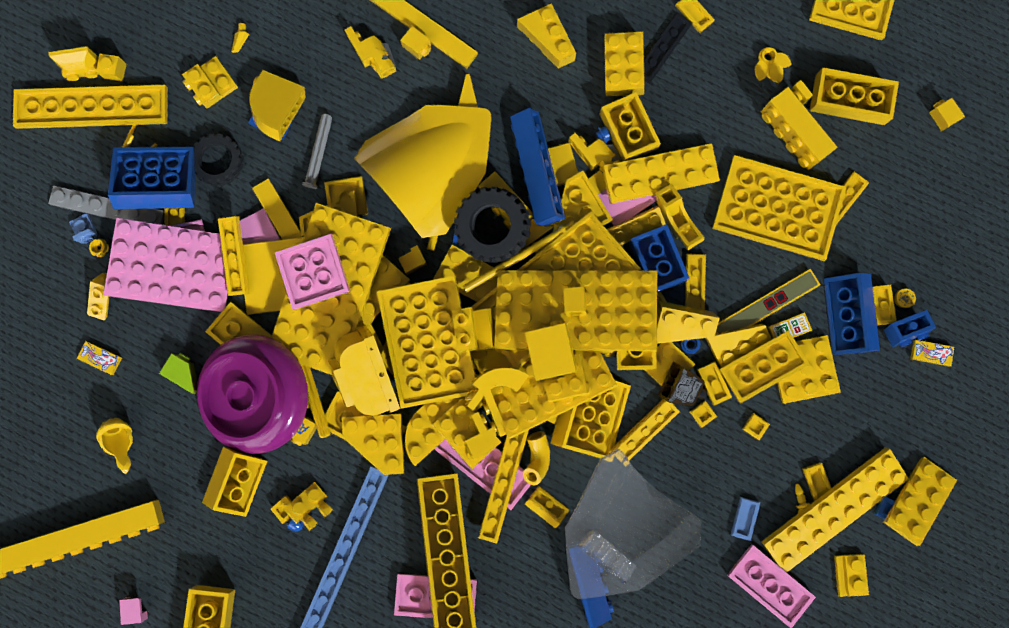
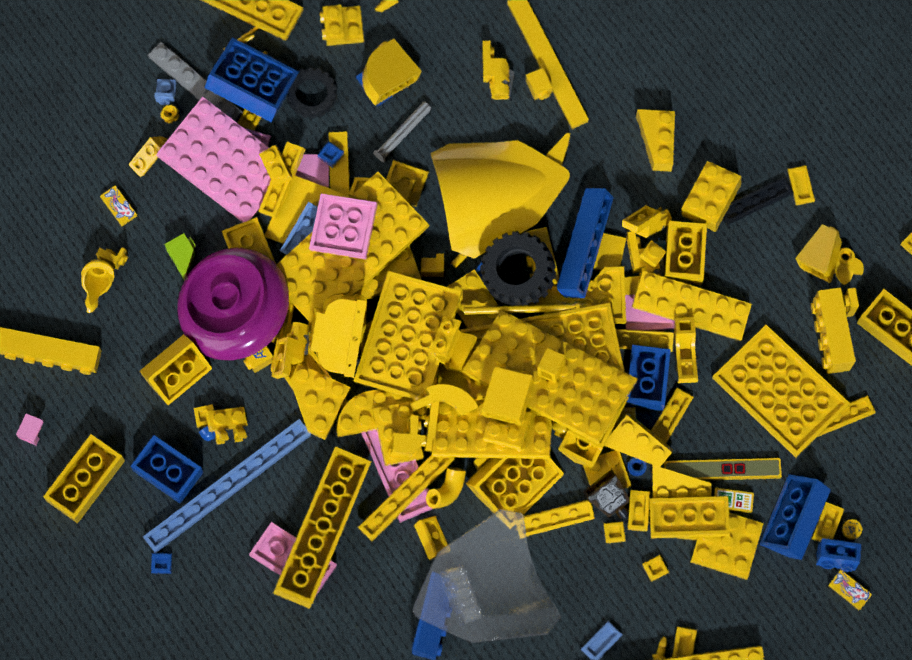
camera: 25 degrees right, 10 degrees down
(124, 410) = (111, 258): none -> yellow bracket
(220, 246) = (275, 166): none -> yellow plate
(265, 207) = (330, 154): none -> blue tile
(276, 292) = (302, 228): none -> medium blue plate
(276, 580) = (167, 469): none -> blue brick
(328, 410) = (290, 349): none -> yellow plate
(582, 117) = (647, 221): none -> yellow plate
(603, 145) = (652, 254): none -> yellow plate
(748, 65) = (821, 253): none -> yellow slope

